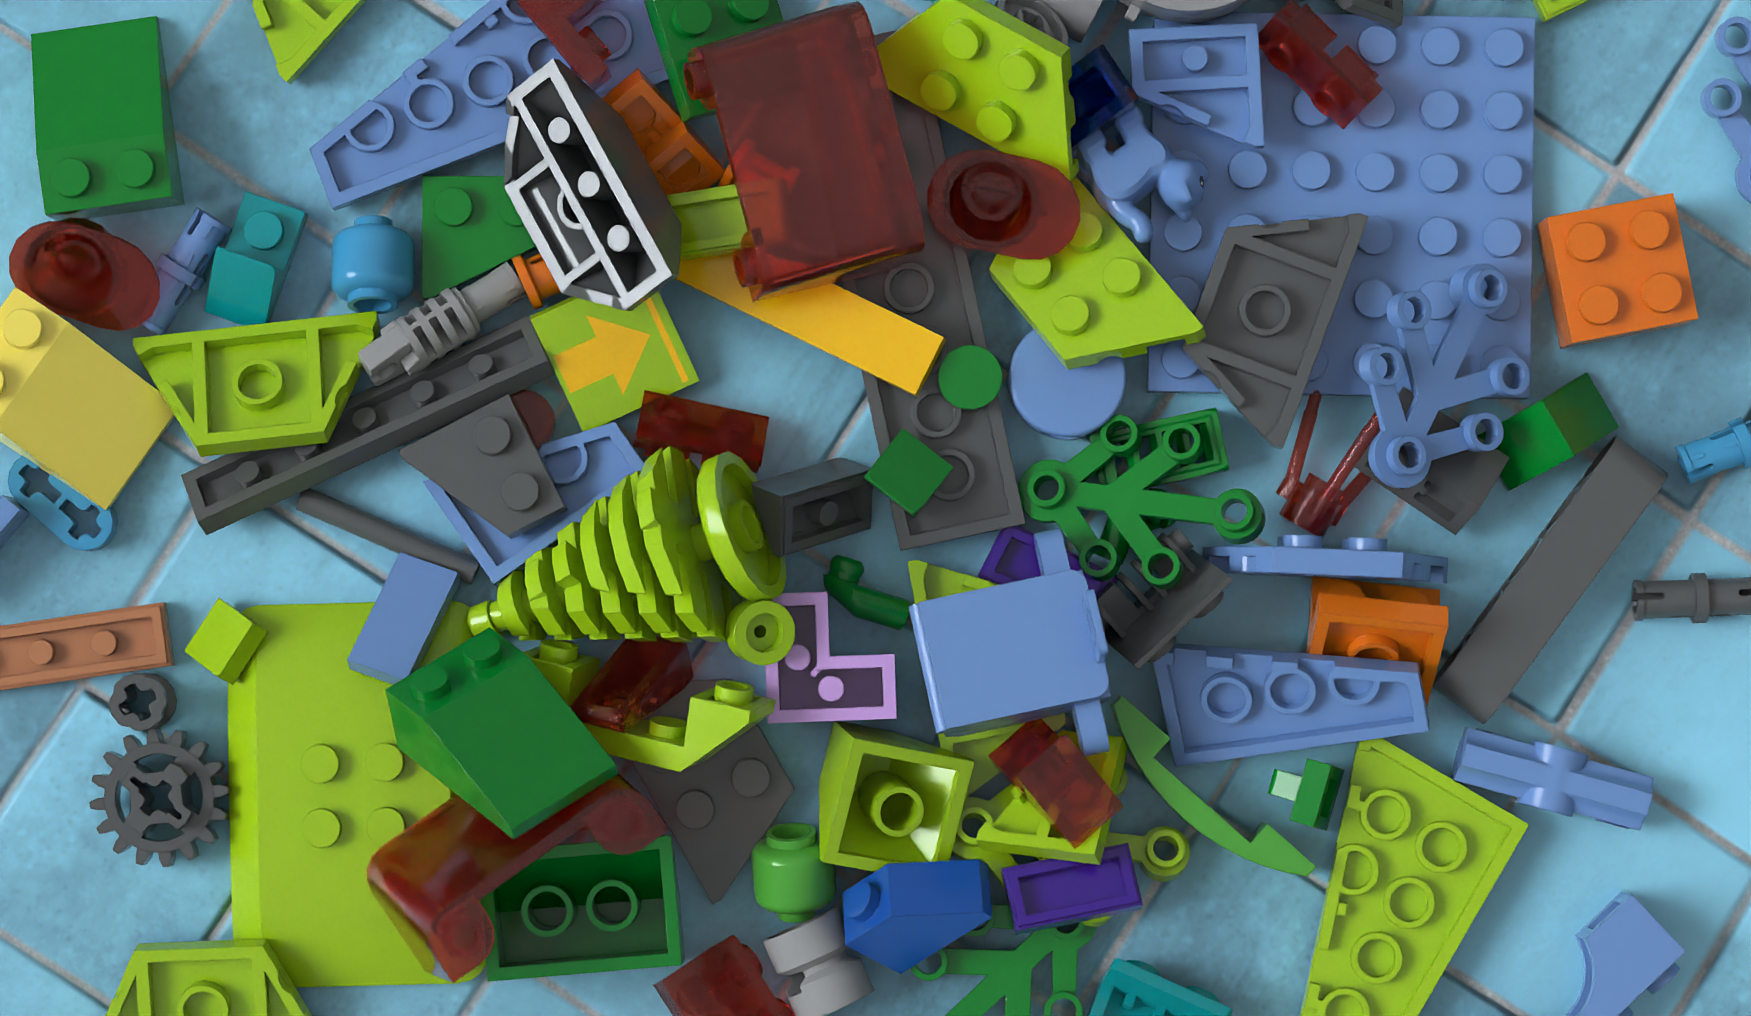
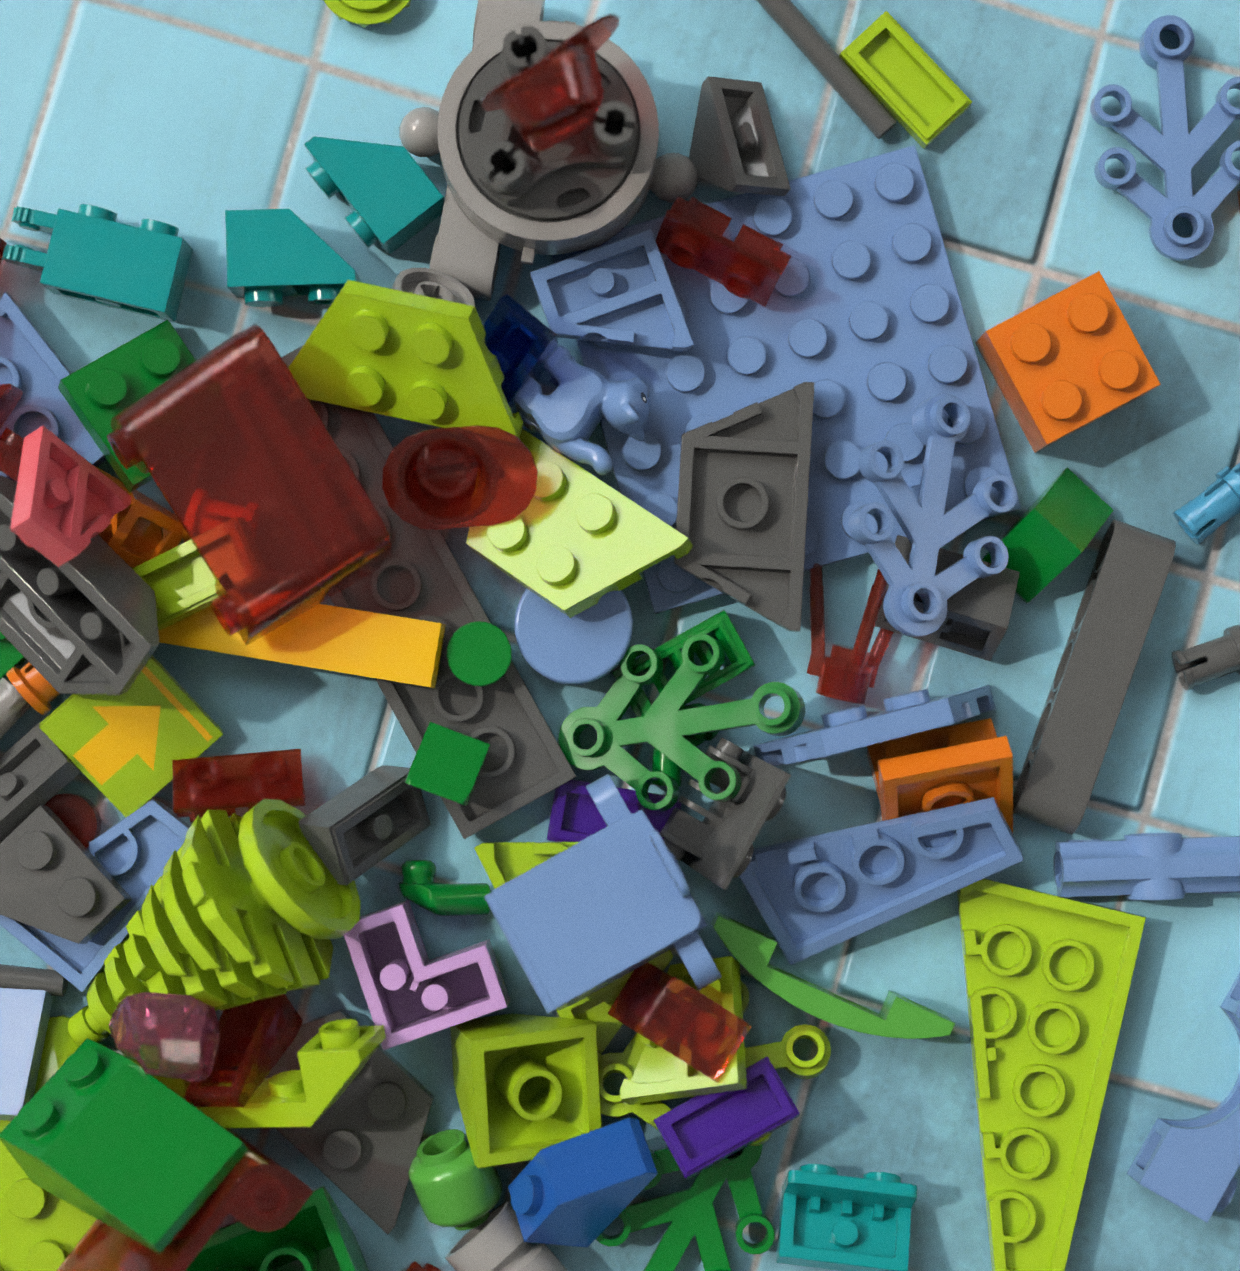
camera: 20 degrees left, 0 degrees up
(570, 643) = (167, 1034): none -> clear pink rock
(624, 109) = (61, 498): none -> coral wing
(760, 631) = (347, 966): lime tile -> none
(1312, 793) = (928, 951): green tile -> none

